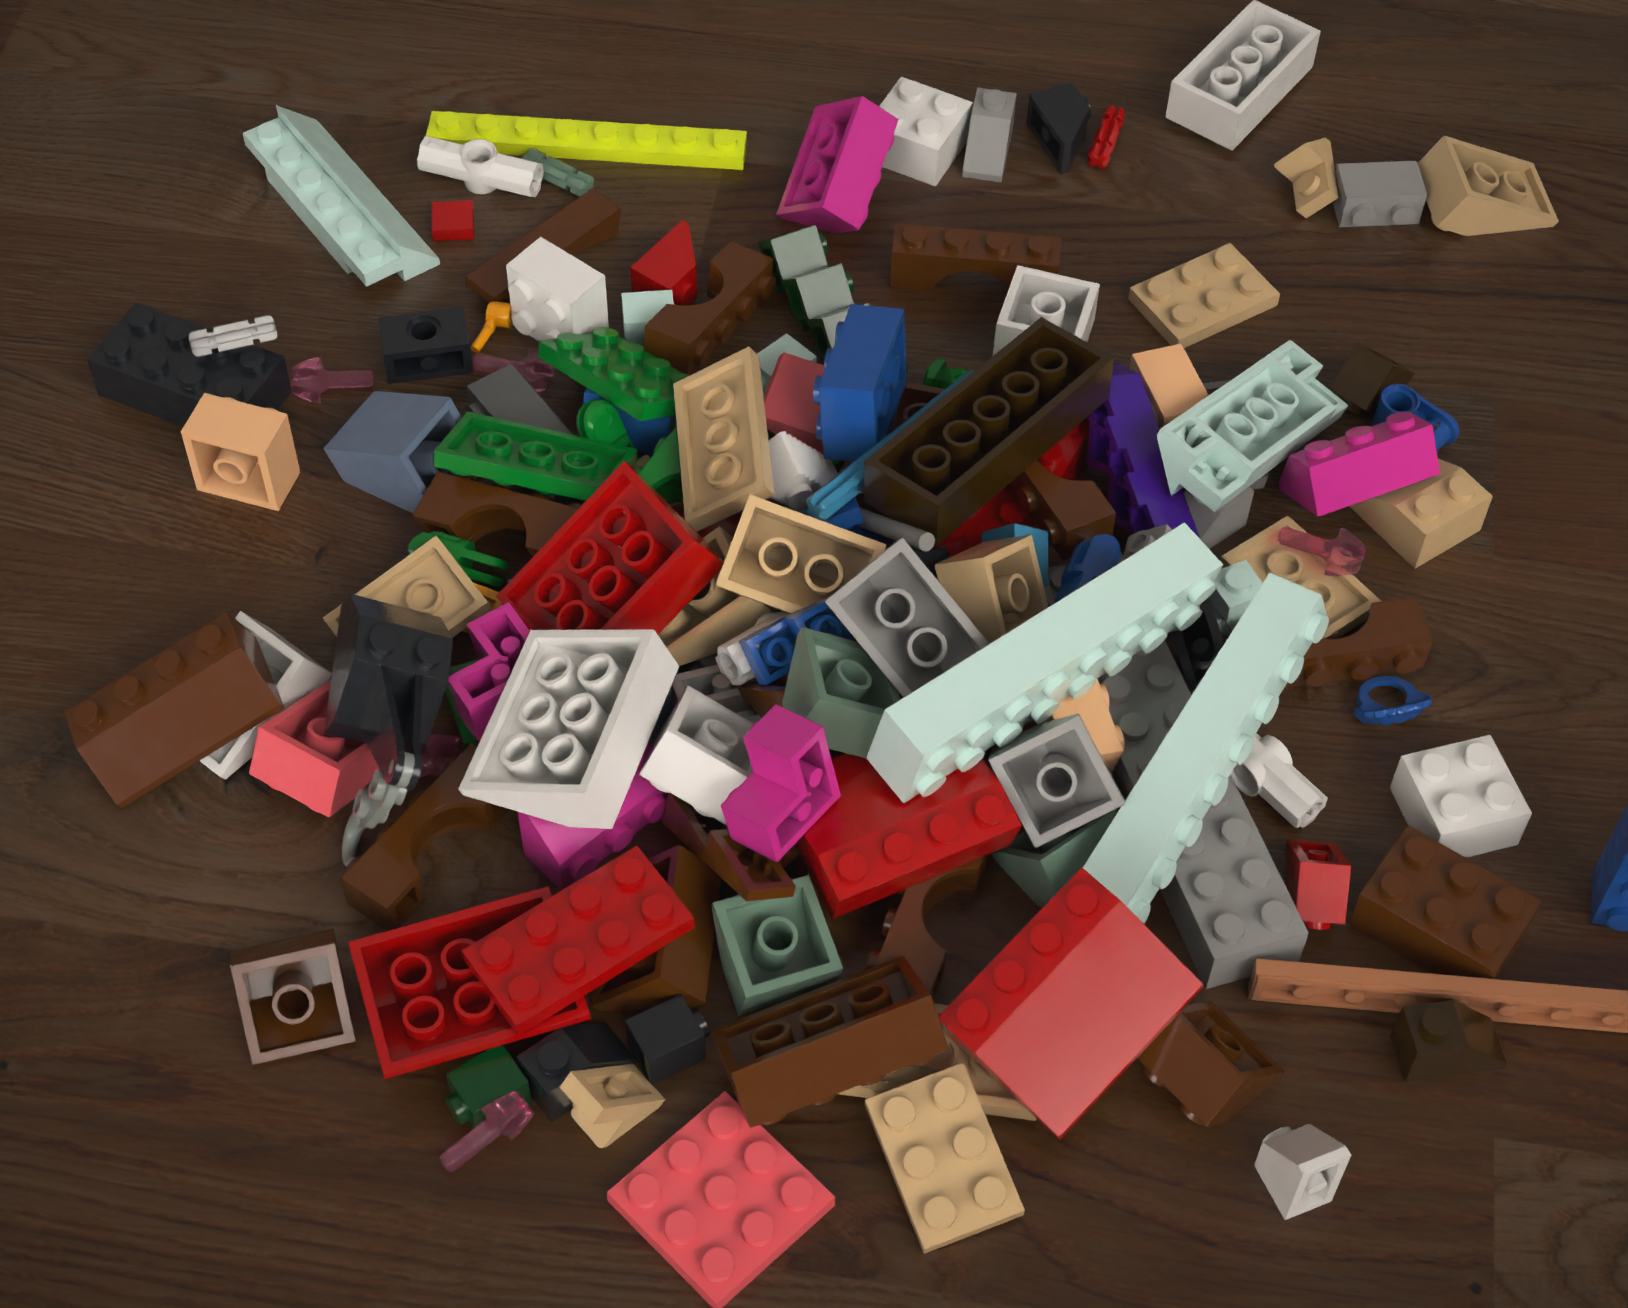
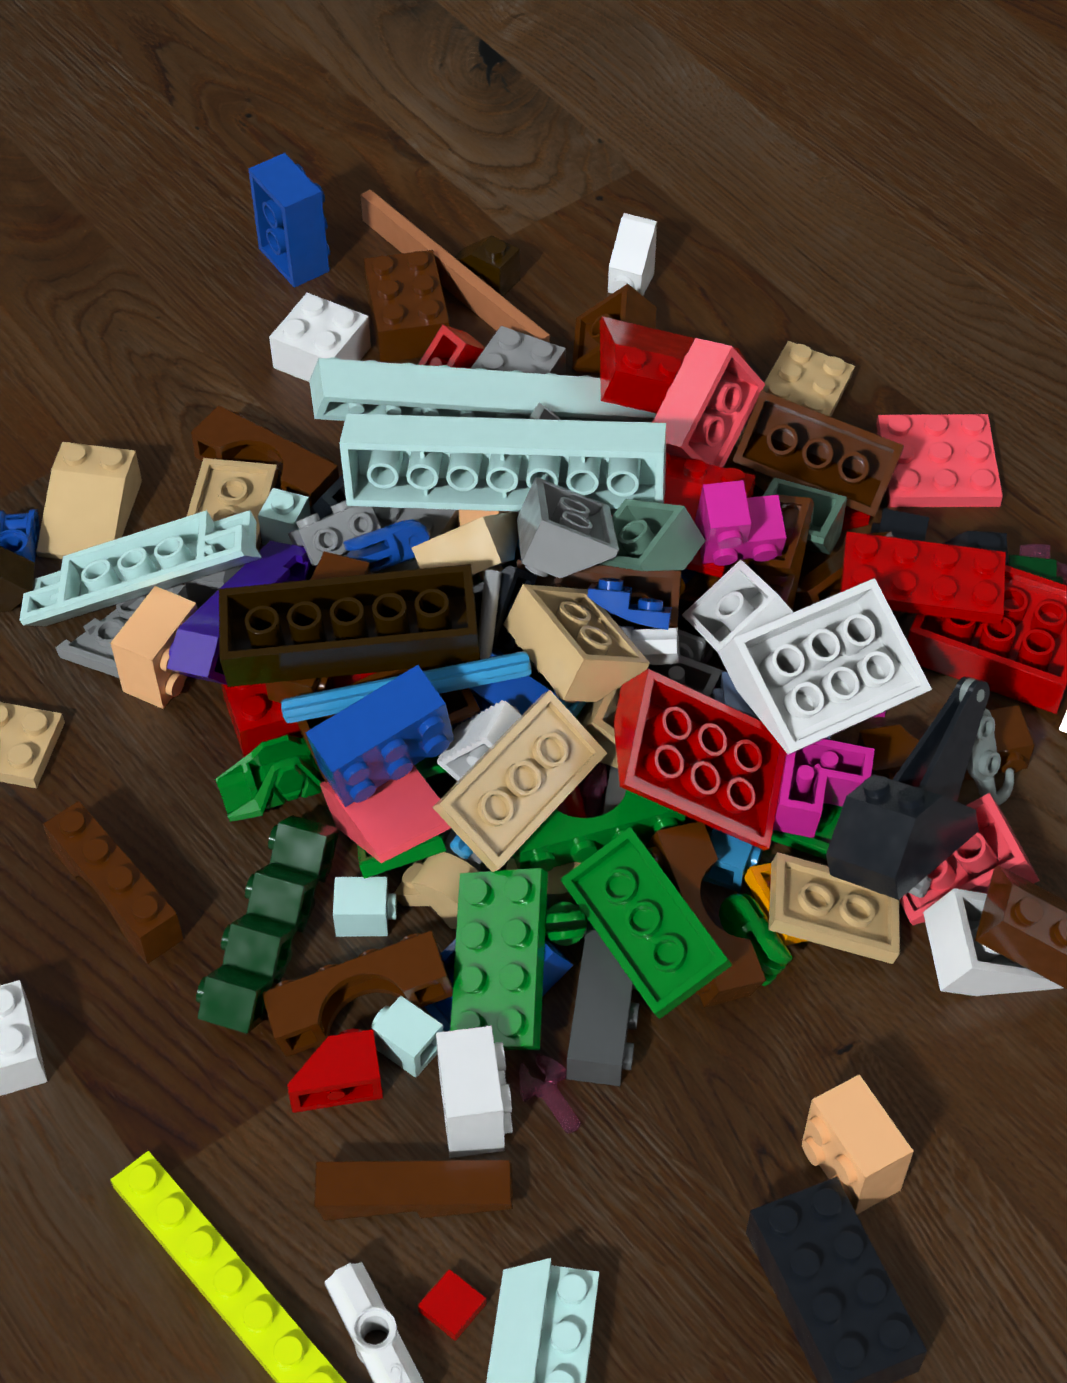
camera: 135 degrees left, 0 degrees up
(232, 335) = (788, 1242): light grey axle -> none
(321, 379) = (711, 1210): clear pink bar -> none
(392, 445) = (719, 1062): sand blue slope -> none
(425, 345) = (594, 1140): black brick -> none
(497, 315) = (512, 1150): light orange hand -> none
(561, 174) = (311, 1280): sand green axle -> none
(610, 1100) = (973, 515): tan slope -> none
(838, 165) = (109, 1040): dark pink slope -> none
(961, 925) = (708, 403): none -> coral slope
(1042, 294) = (138, 782): white brick -> none
(1329, 550) = (199, 490): clear pink bar -> none
(1361, 464) = (89, 511): dark pink slope -> none
(1374, 713) = (267, 400): blue piece -> none

